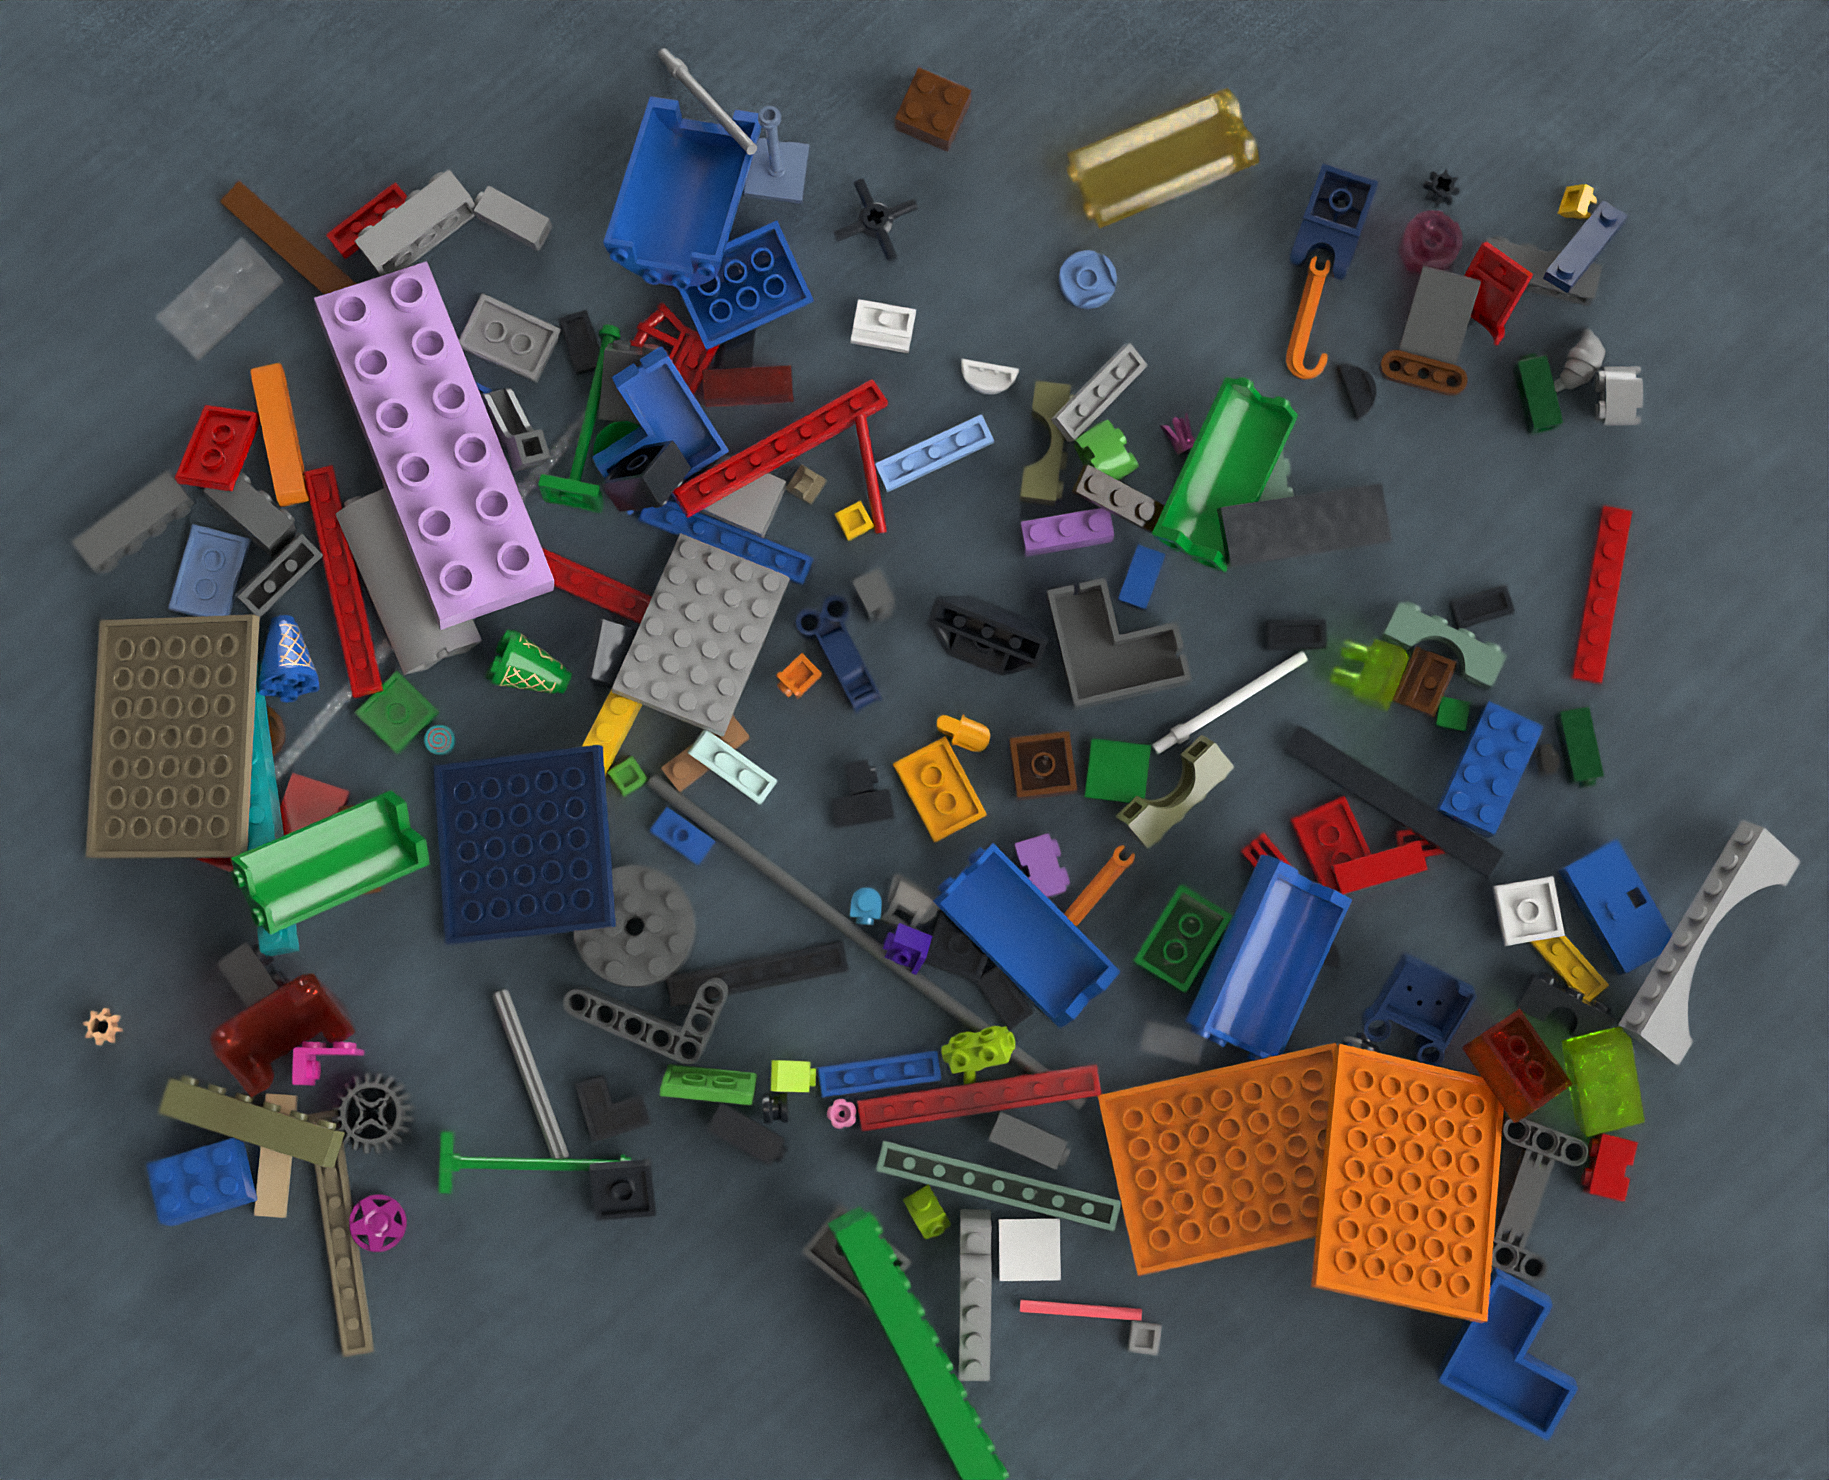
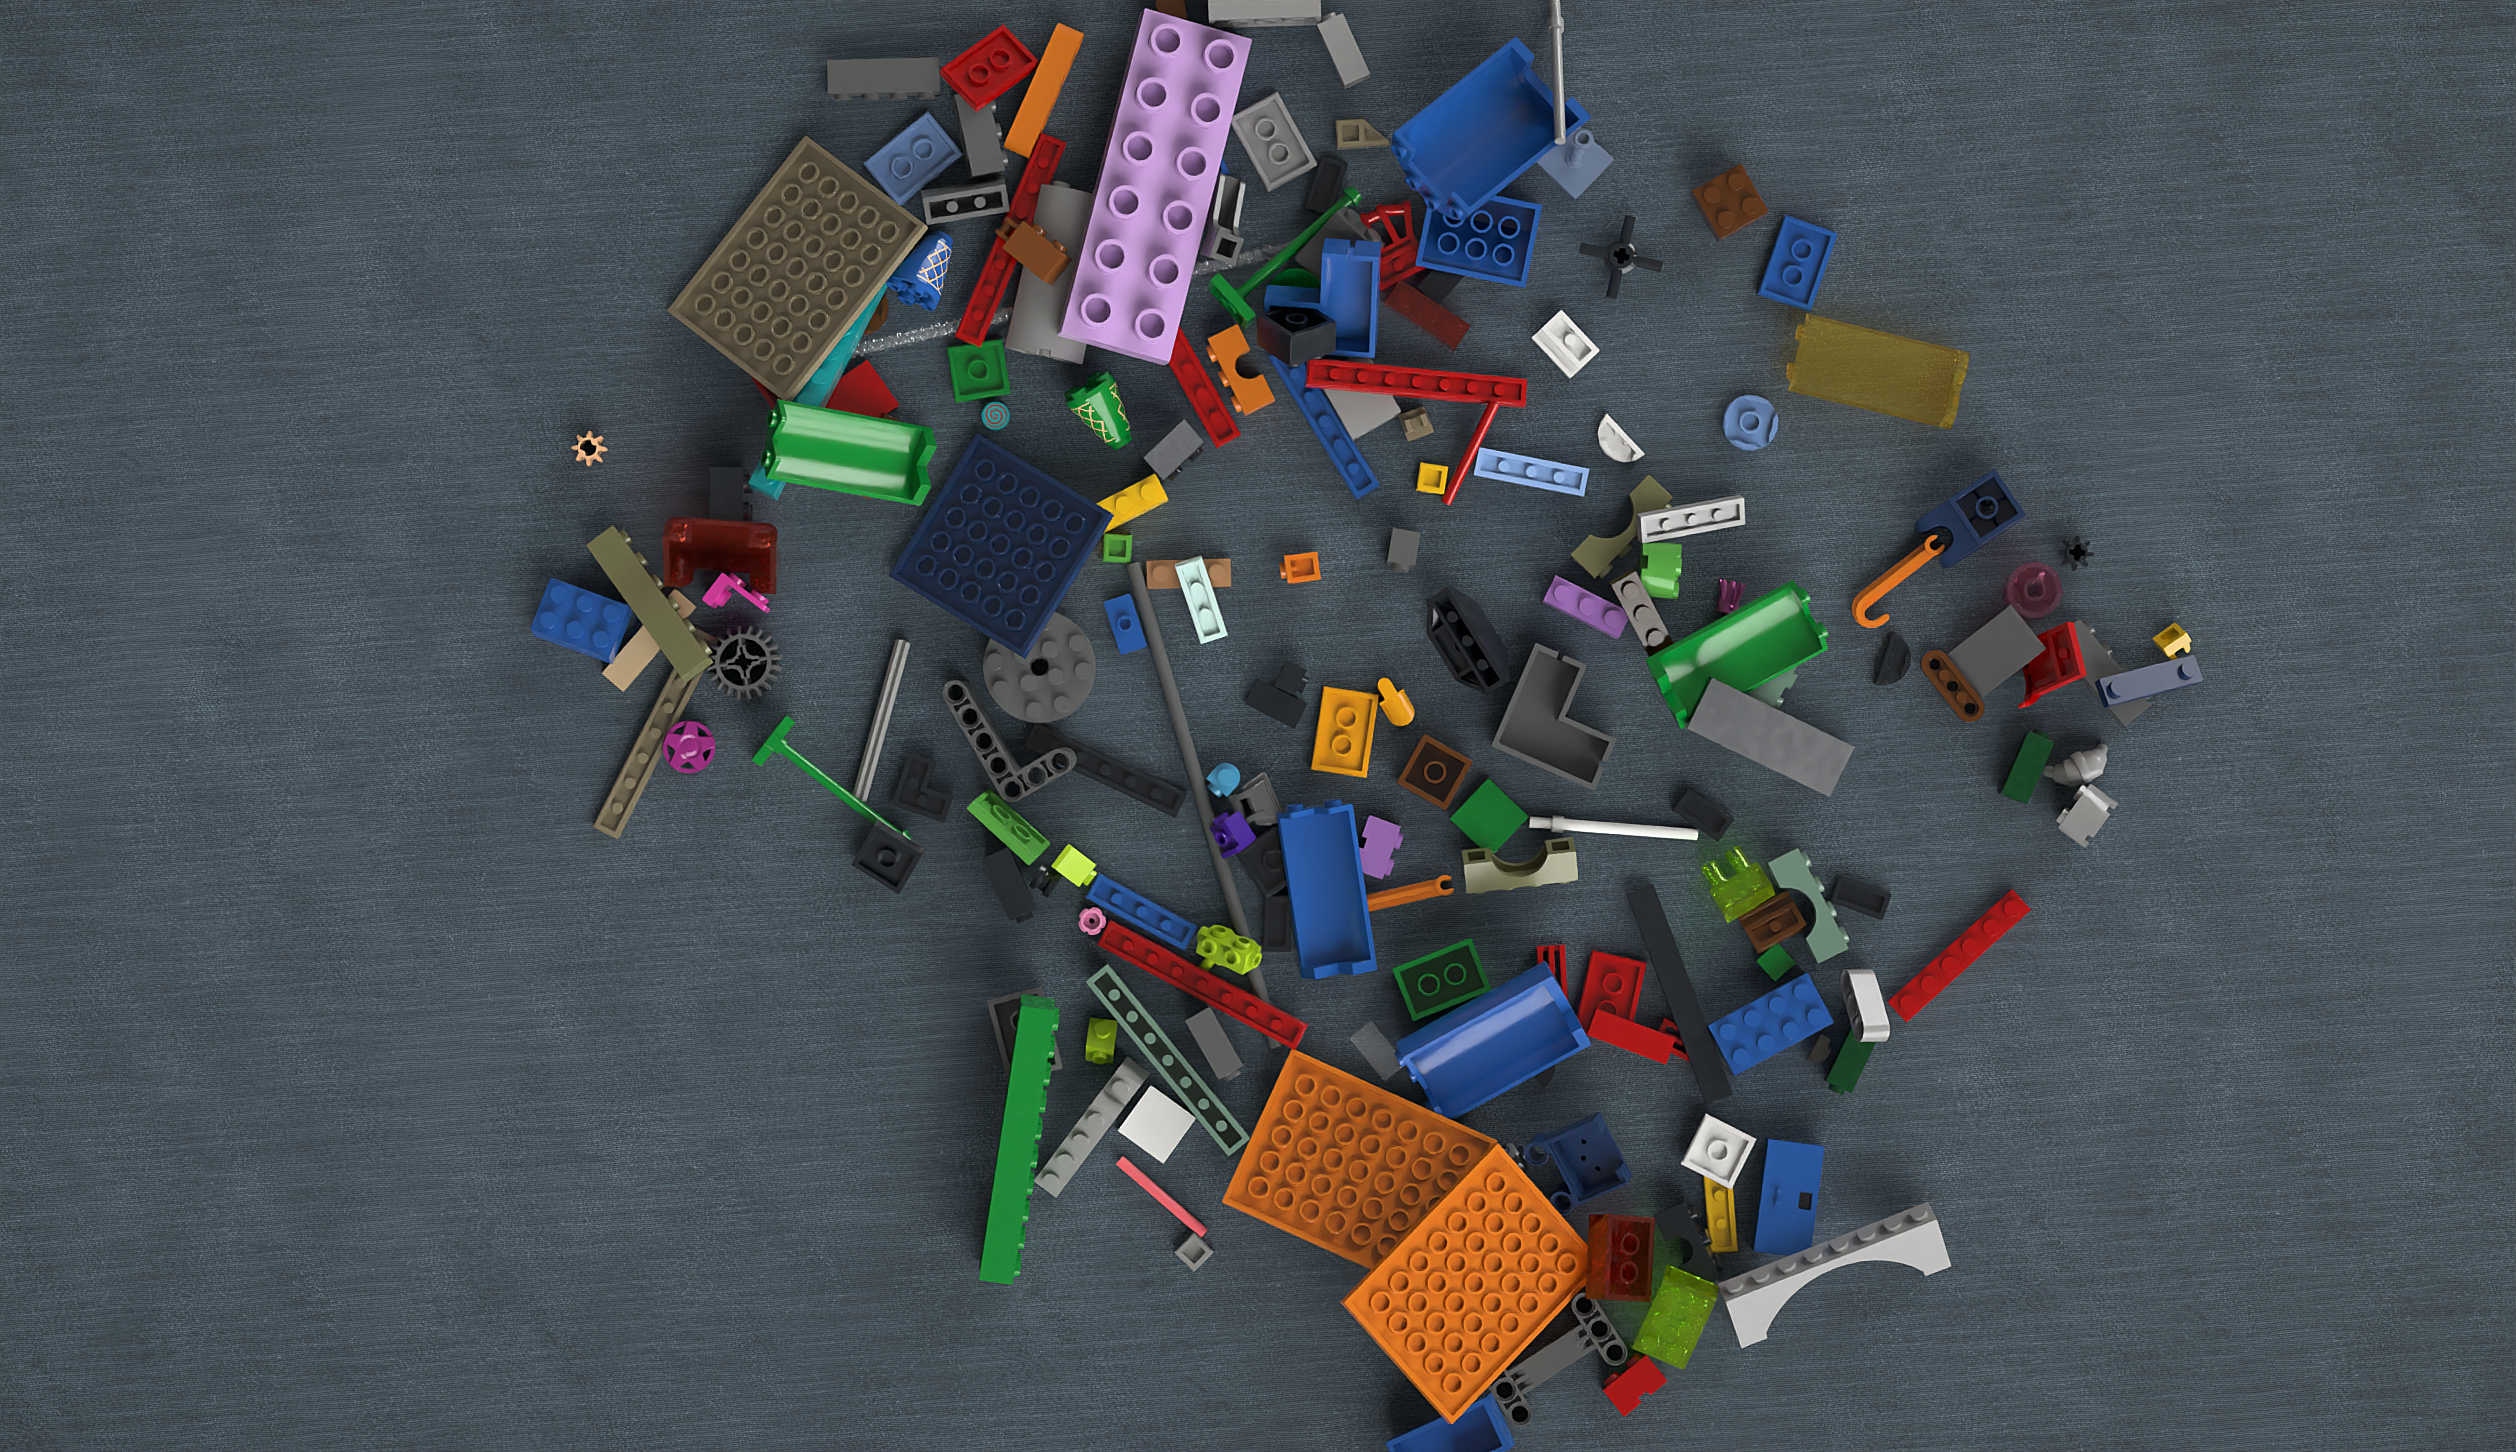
camera: 40 degrees right, 5 degrees up
(368, 570) = (1034, 250): none -> dark orange brick
(577, 280) = (1358, 134): none -> dark tan tile
(644, 562) = (1248, 393): none -> orange arch
(701, 635) = (1251, 482): light grey plate -> none
(841, 653) = (1346, 575): dark blue piece -> none
(1027, 120) = (1797, 263): none -> blue tile
(1141, 577) = (1618, 683): blue tile -> none
(1558, 693) = (1864, 1005): none -> beam

